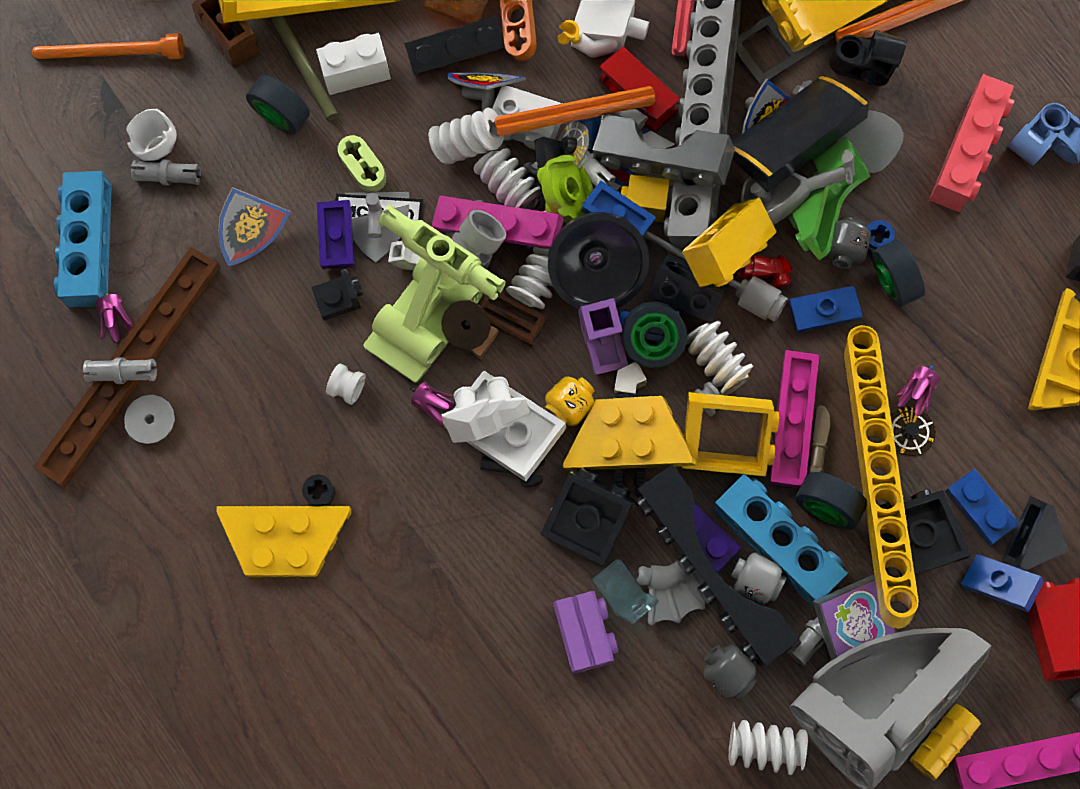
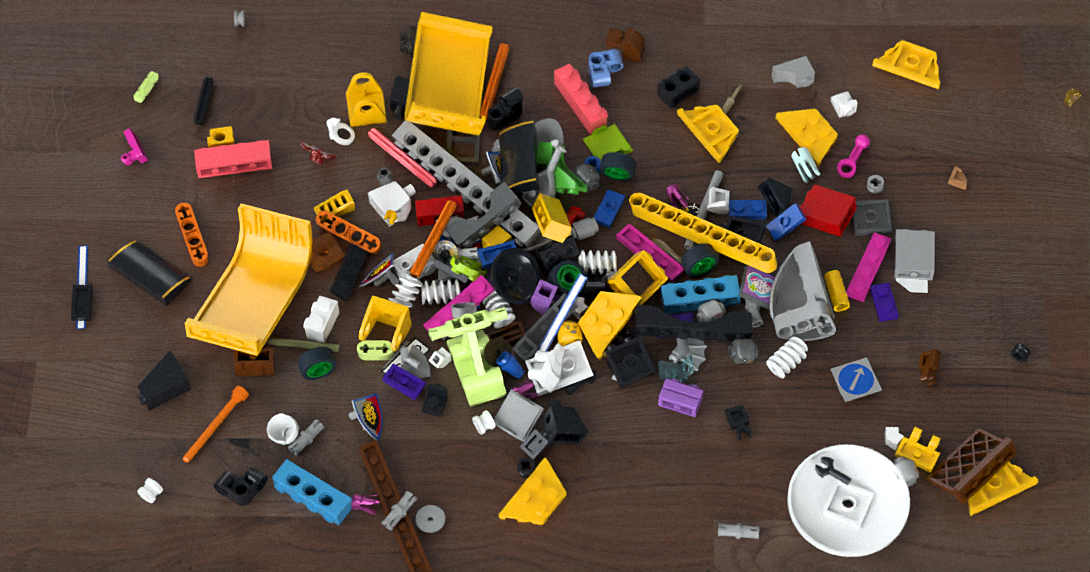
camera: 55 degrees left, 15 degrees down
(30, 132) = (250, 483): none -> black piece
(364, 480) = (536, 444): none -> bracket
(388, 422) = (517, 415): none -> light grey piece
(399, 120) = (387, 313): none -> yellow hose
(413, 495) = (563, 424): none -> black torso
(459, 353) = (509, 364): none -> blue cone
(552, 358) = (534, 336): none -> dark grey slope
(584, 369) = (560, 317): none -> sticker
(609, 742) = (738, 419): none -> black plate
(679, 378) = (594, 284): none -> black slope
(934, 232) = (607, 140): none -> lime piece
(944, 440) = (702, 213): none -> light grey piece
(960, 455) = (718, 201): none -> white tile

